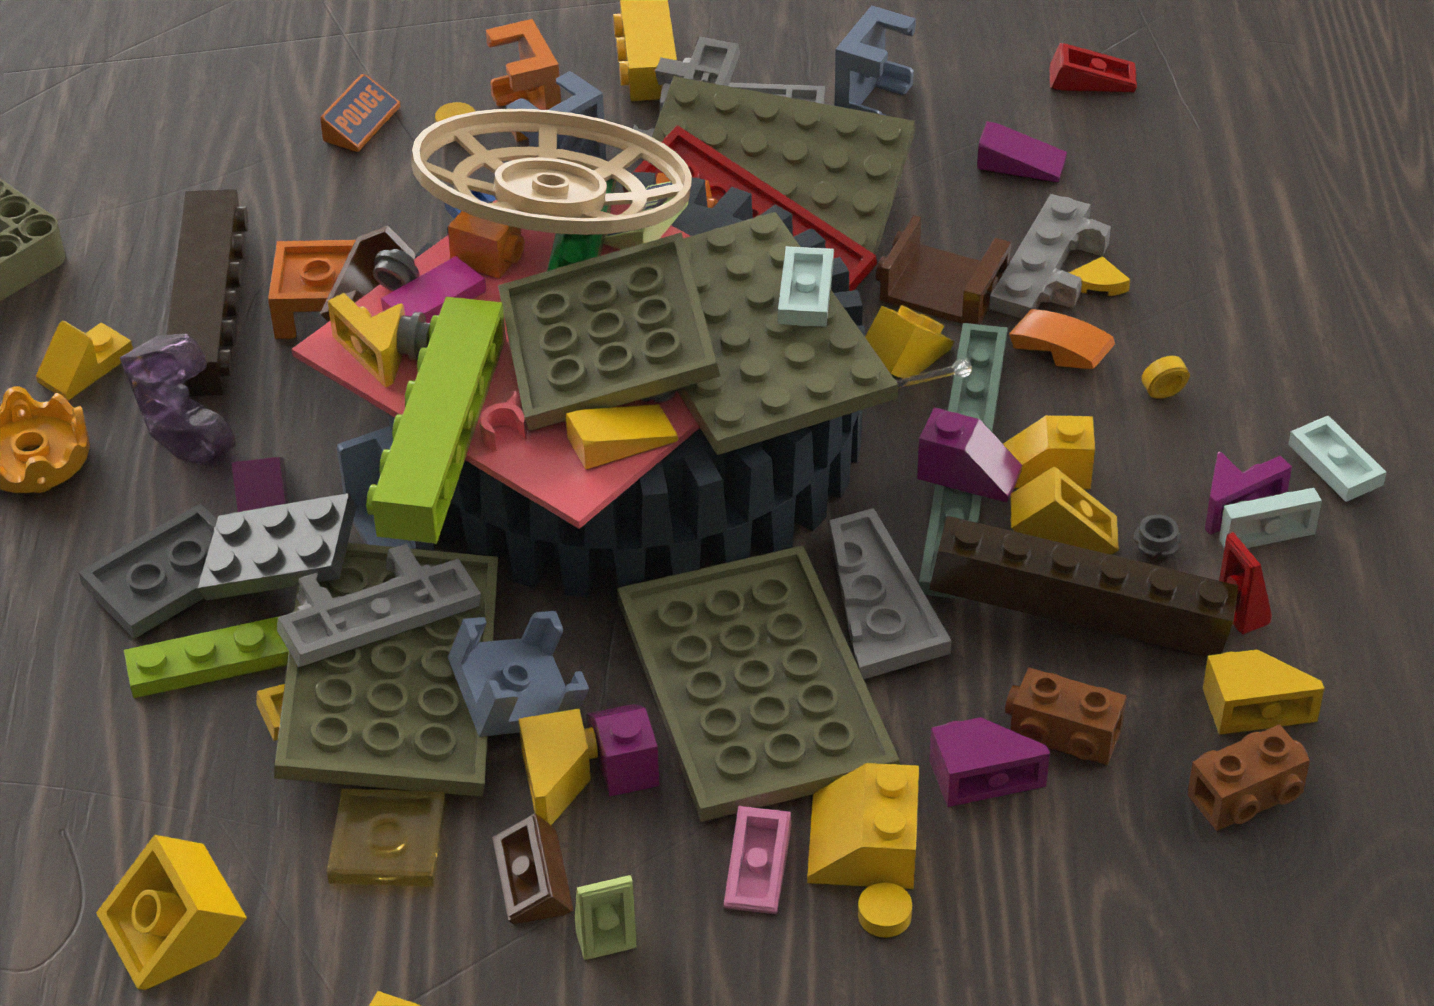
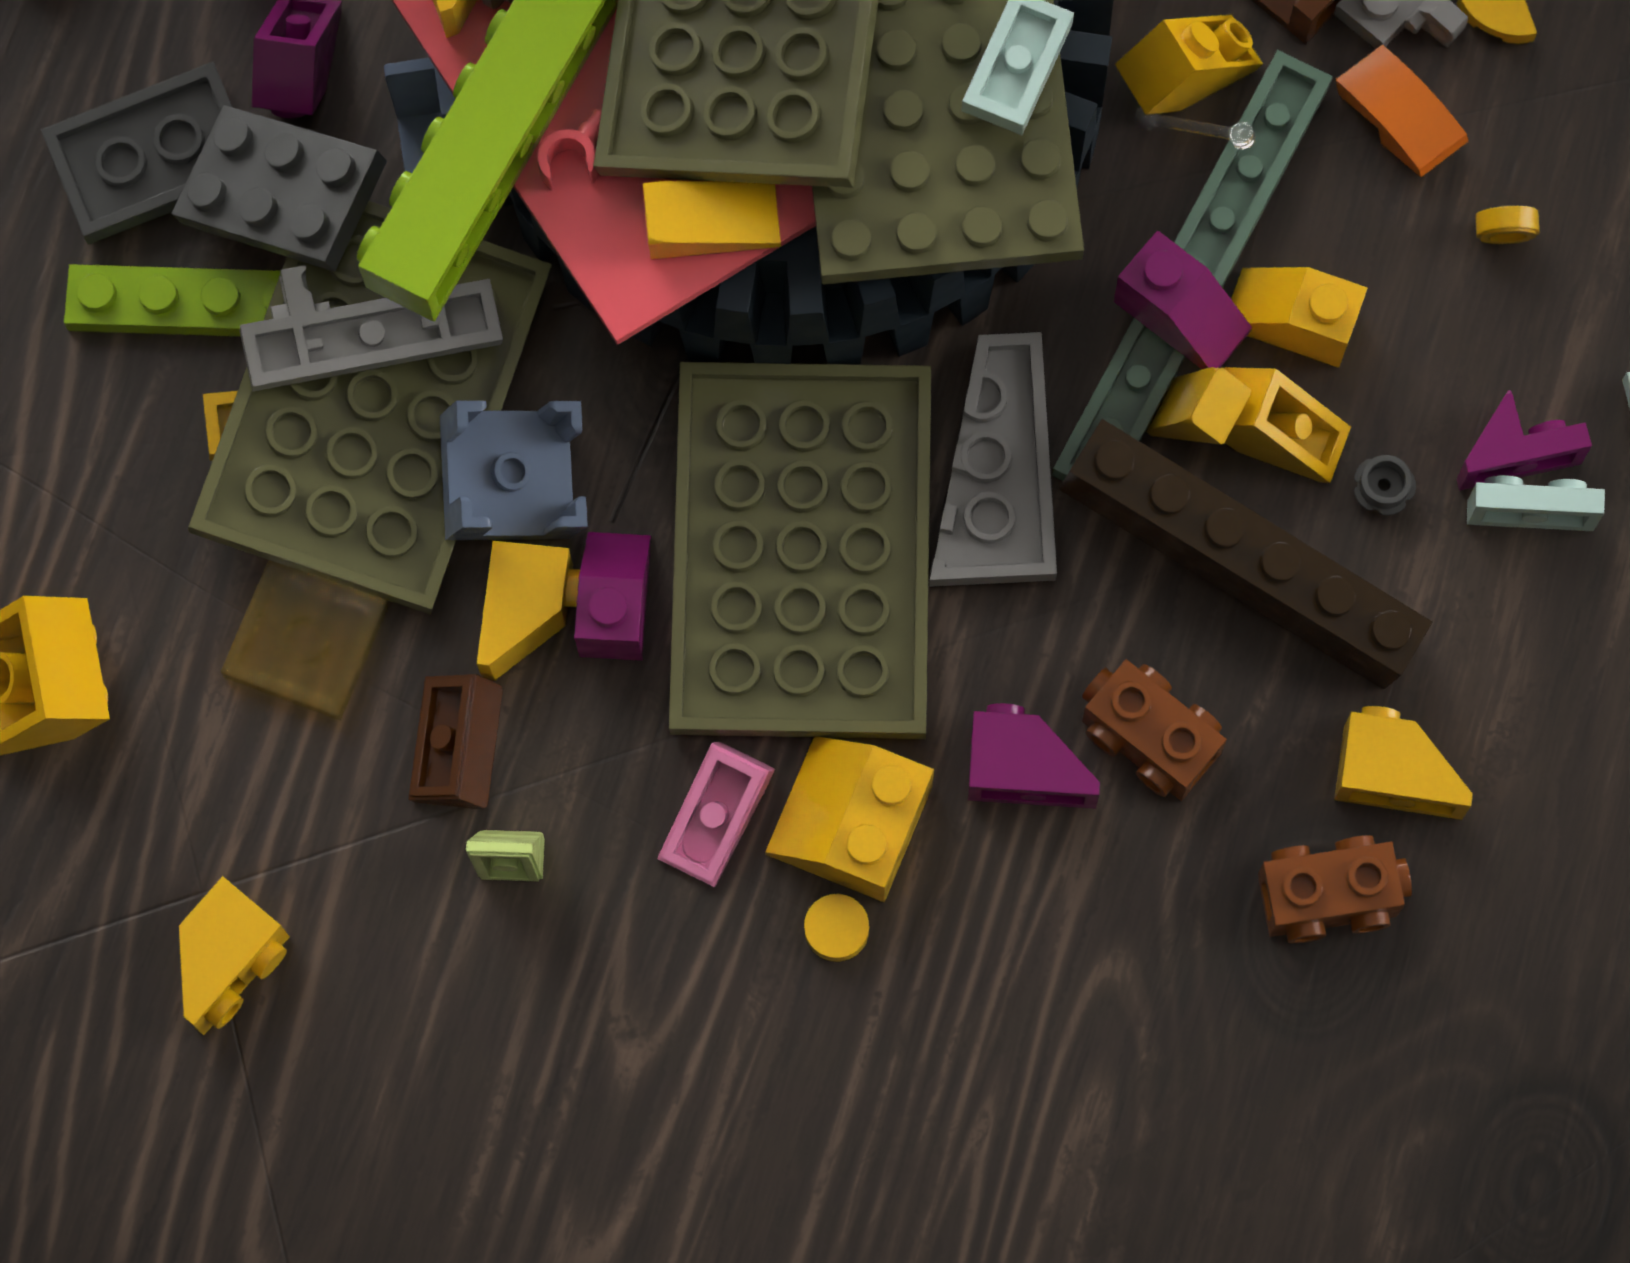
camera: 20 degrees right, 30 degrees up
(1015, 500) = (1201, 407): none -> yellow slope
(1252, 600) = (1447, 607): red slope -> none

